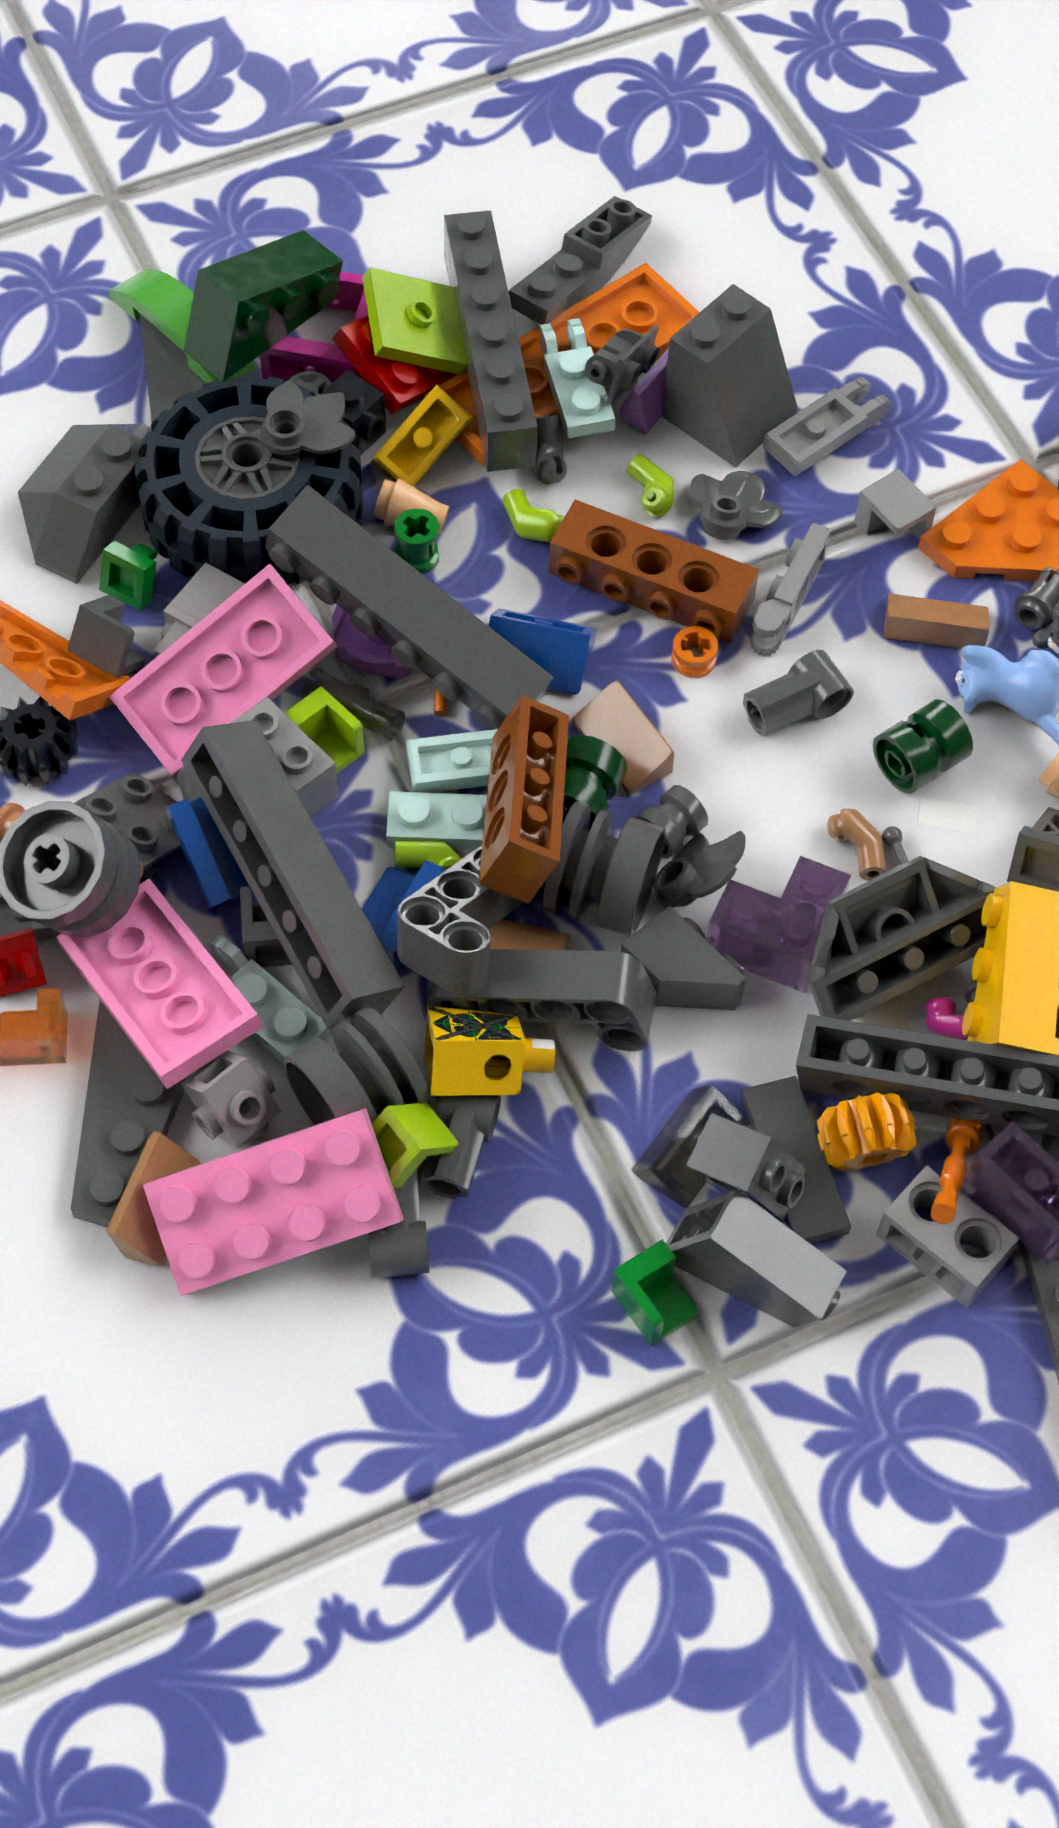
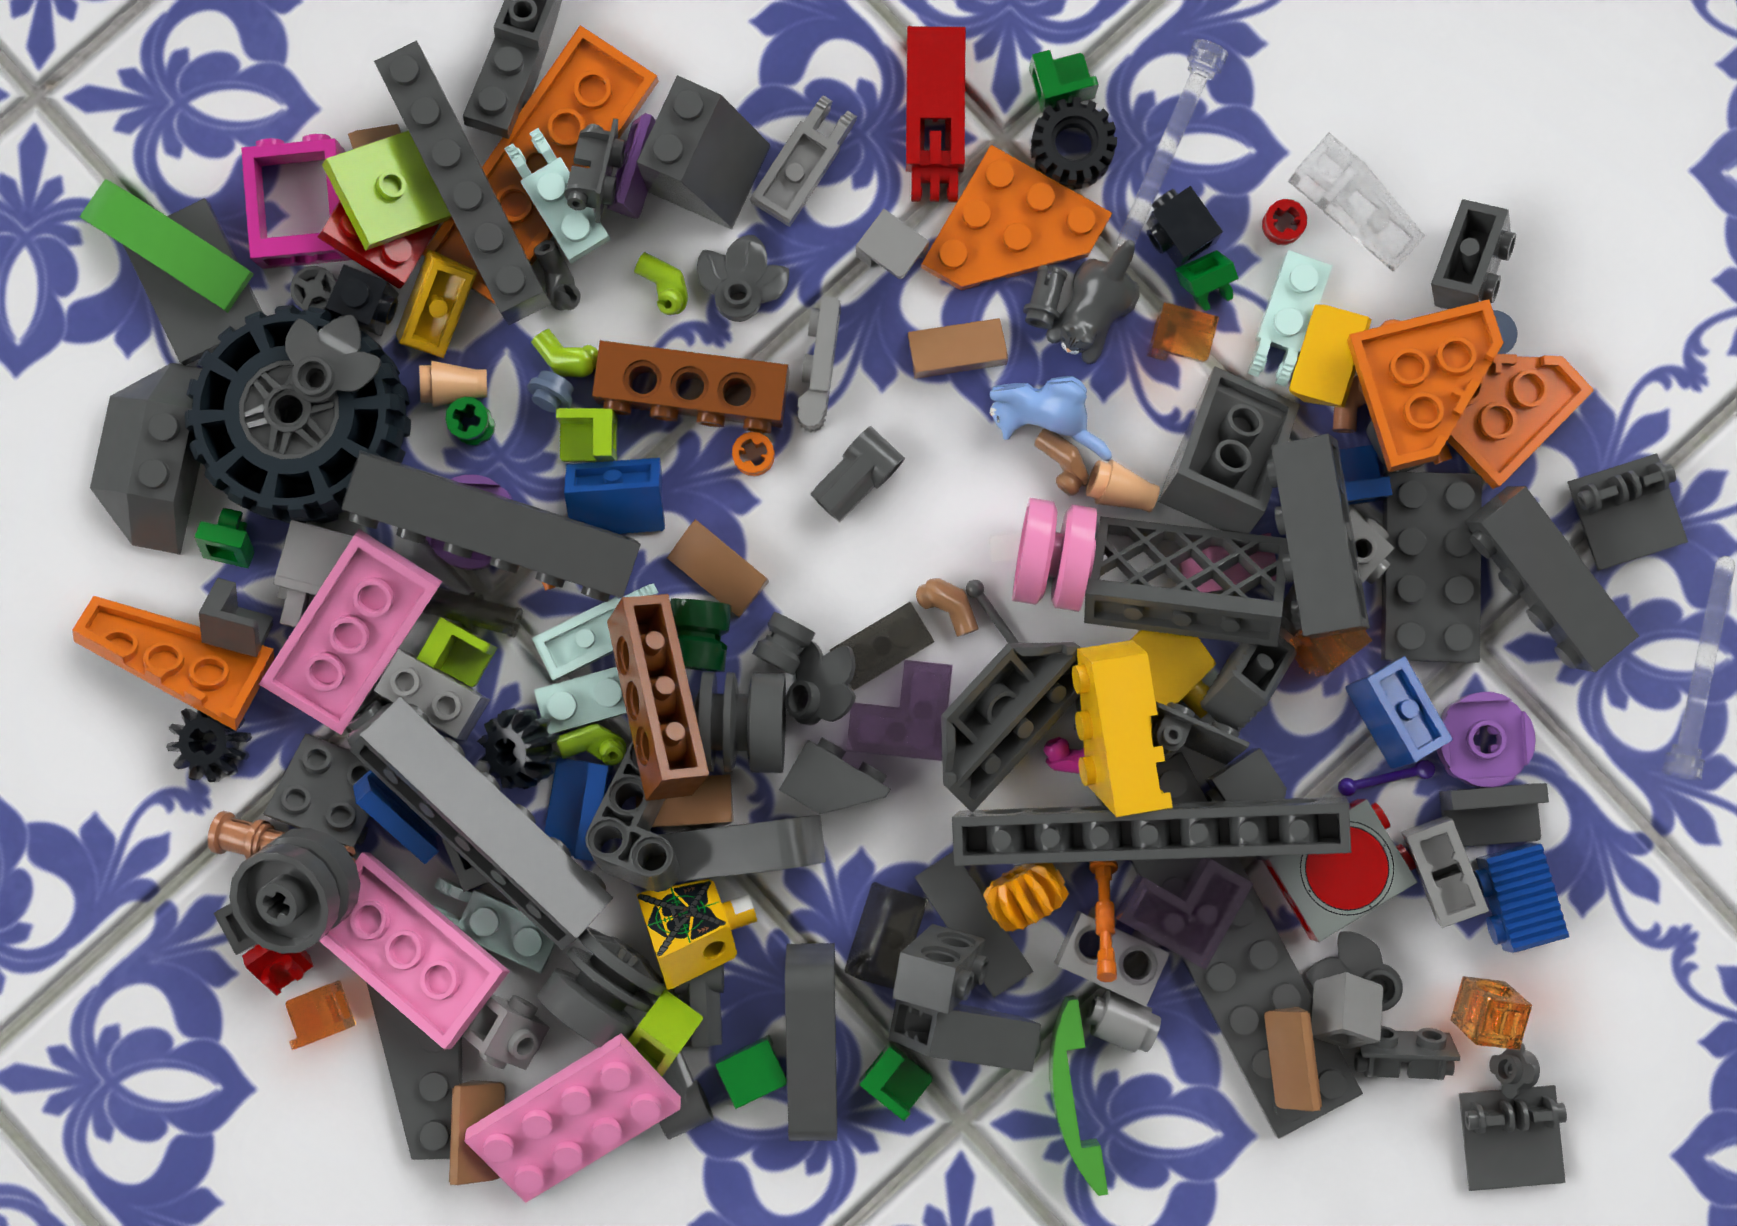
camera: 15 degrees left, 25 degrees up
(258, 300) = (235, 220): dark green wedge -> none
(358, 830) = (519, 748): none -> black gear
(490, 1225) = (751, 1072): none -> green panel
(507, 540) = (550, 391): none -> sand blue plate
(532, 582) = (587, 434): none -> lime panel
(569, 1219) = (811, 1041): none -> dark grey beam
(773, 856) = (887, 644): none -> clear smoke plate
(854, 1439) = (1067, 1036): none -> bright green slope
(922, 746) = (989, 485): dark green wheel -> none
(942, 1310) = (1123, 1022): none -> light grey brick
(980, 396) = (935, 92): none -> red hinge
(990, 807) = (1062, 555): none -> bright pink wheel
(1029, 745) = (1069, 459): none -> medium nougat arm

